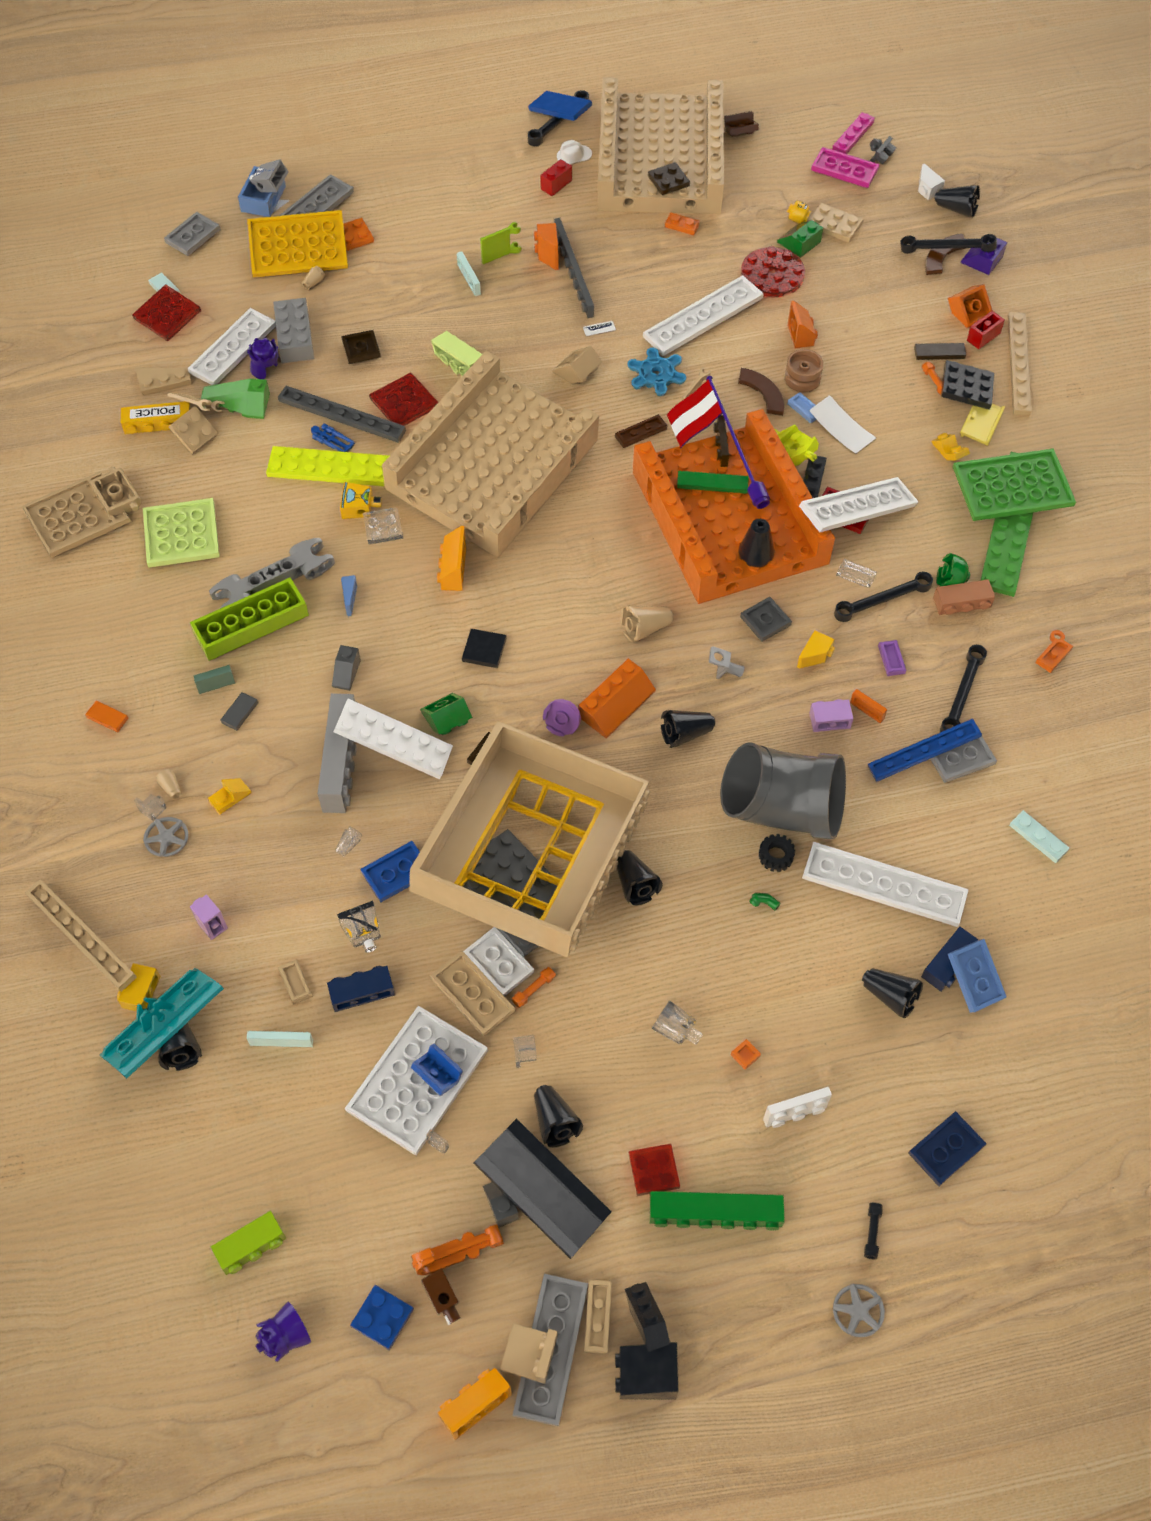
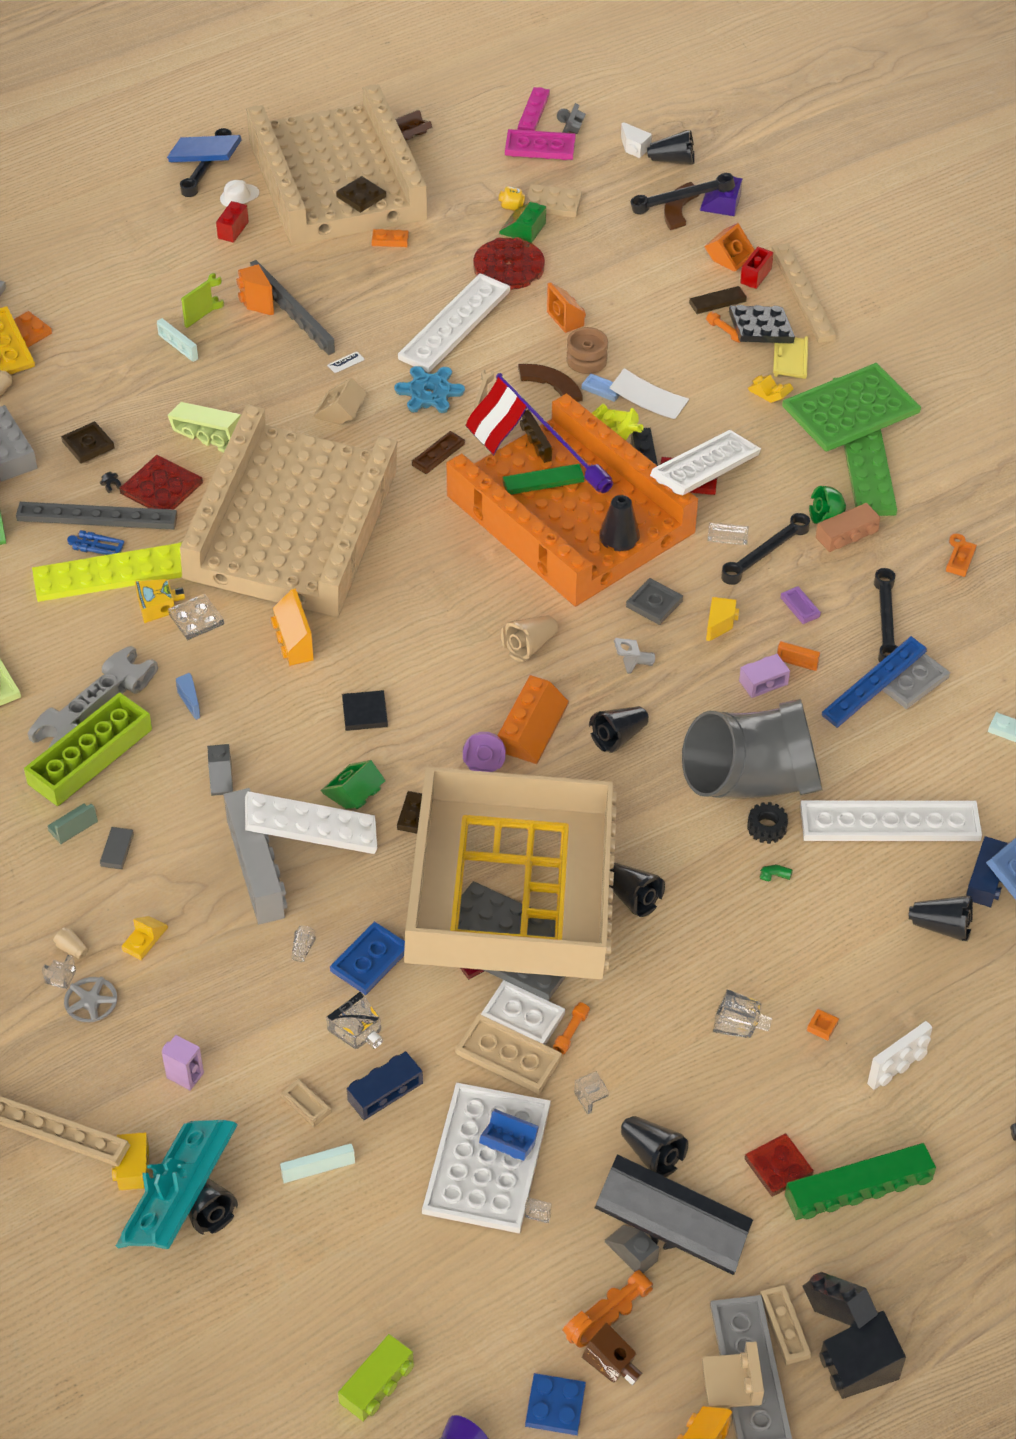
camera: 20 degrees left, 10 degrees down
(364, 384) = (110, 478): none -> black plate

